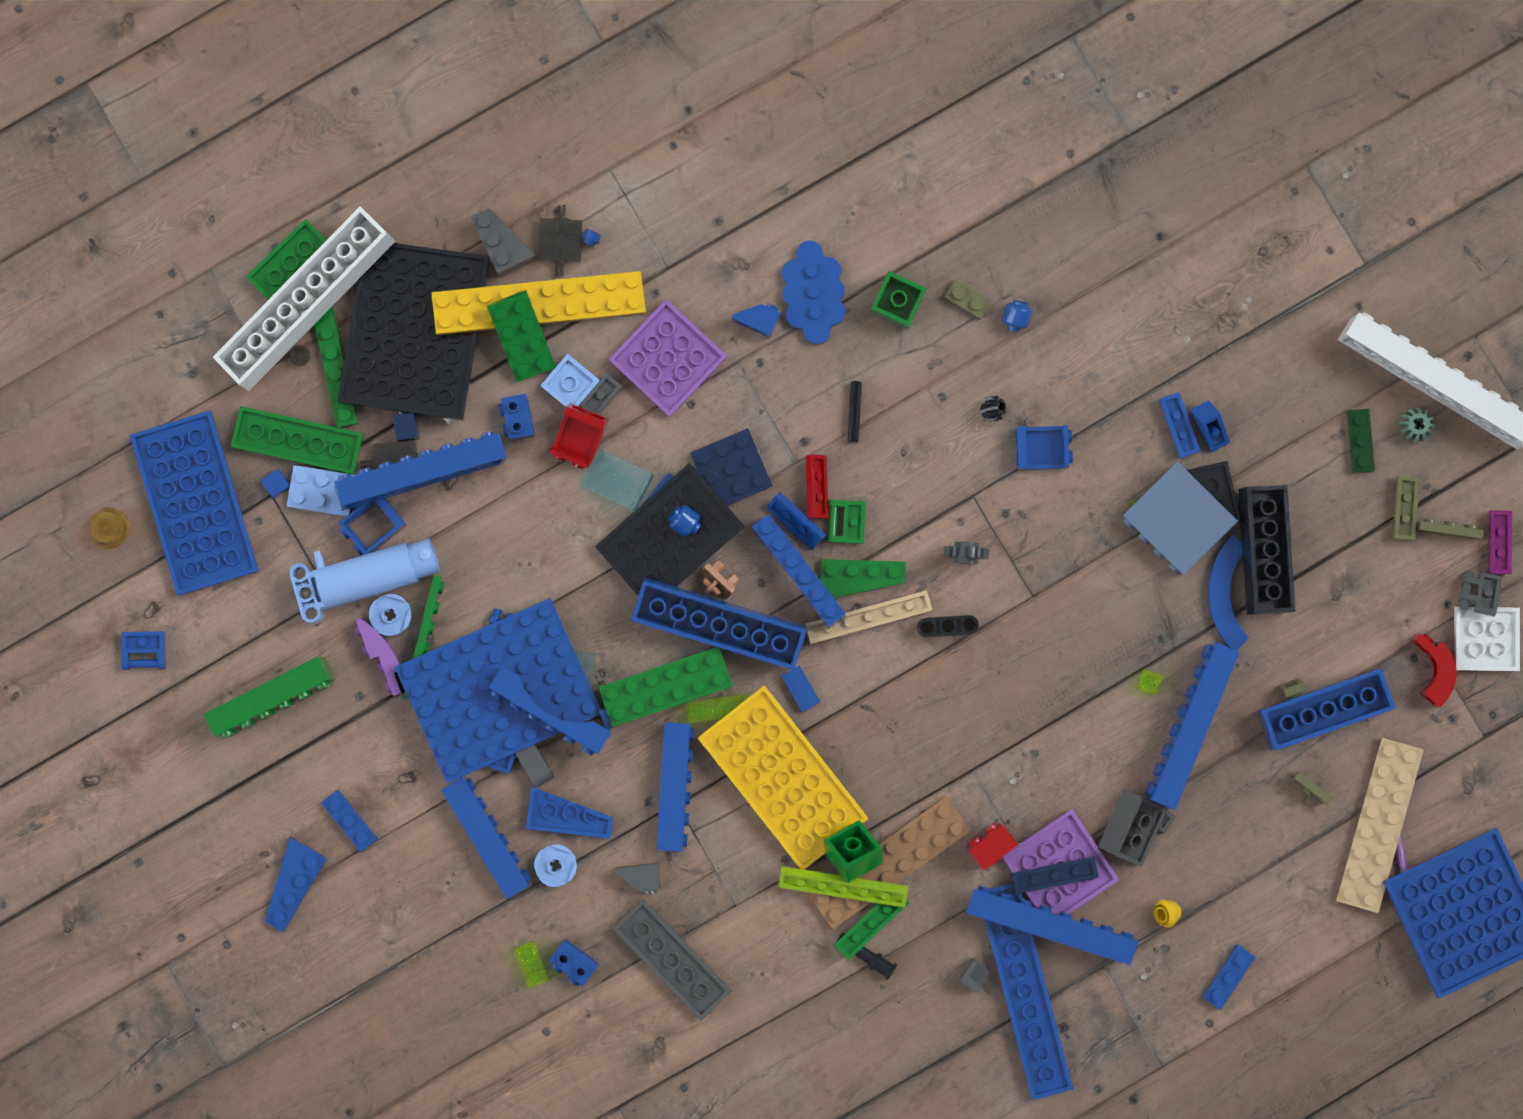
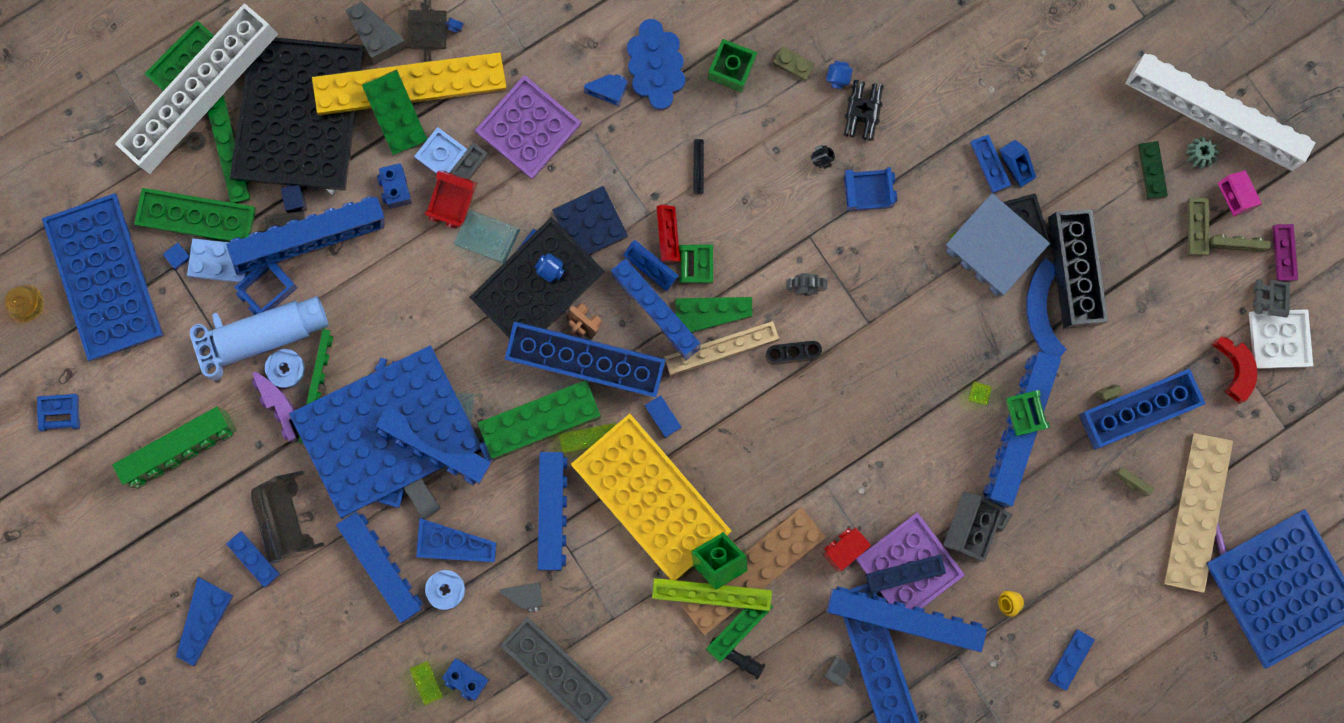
camera: 10 degrees left, 5 degrees down
(379, 781) = (279, 520): none -> clear smoke windscreen
(1052, 352) = (854, 112): none -> black pin
(1191, 712) = (1021, 413): none -> green plate
(1454, 473) = (1242, 196): none -> dark pink brick

